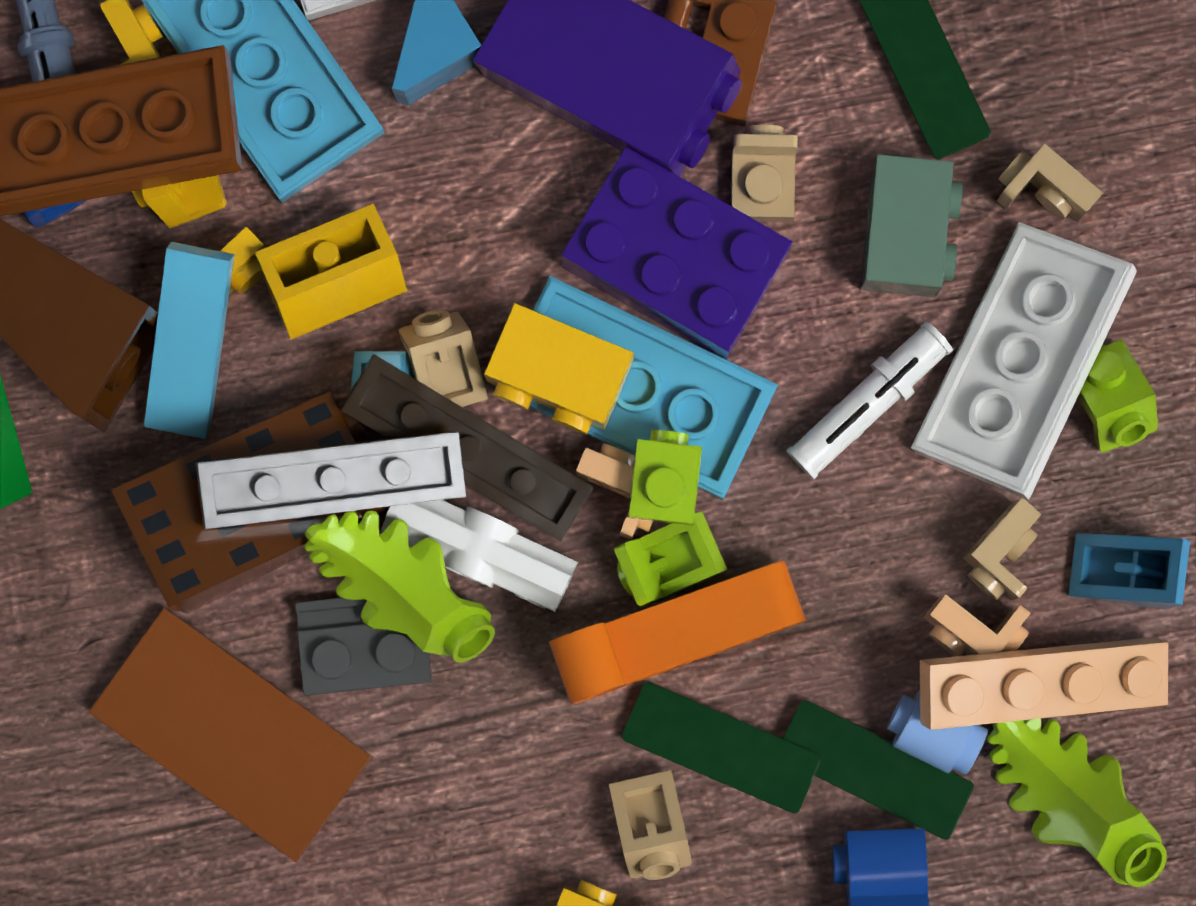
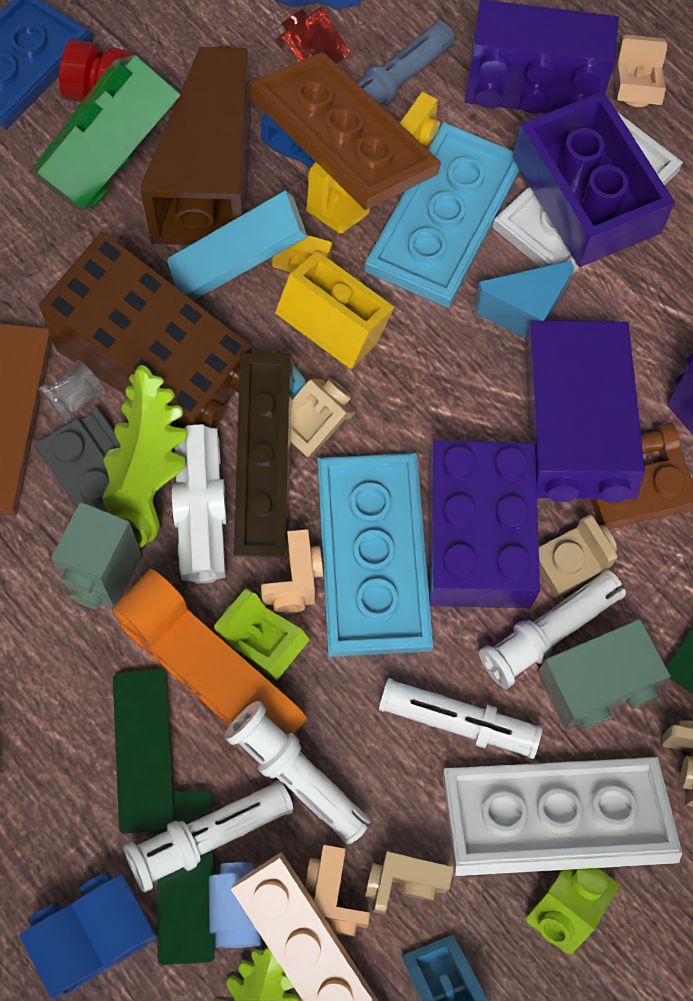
camera: 55 degrees right, 15 degrees down
(262, 621) = (72, 391): none -> clear bush
(330, 480) = (186, 364): plate -> none
(494, 692) = (96, 557): none -> sand green brick
(558, 369) = (354, 484): yellow brick -> none
(650, 826) = (56, 727): tan bracket -> none
(665, 478) = (316, 593): lime bracket -> none
(821, 609) = (281, 758): none -> white pin
(830, 273) = (534, 640): none -> white pin
(856, 756) = (185, 843): none -> white pin

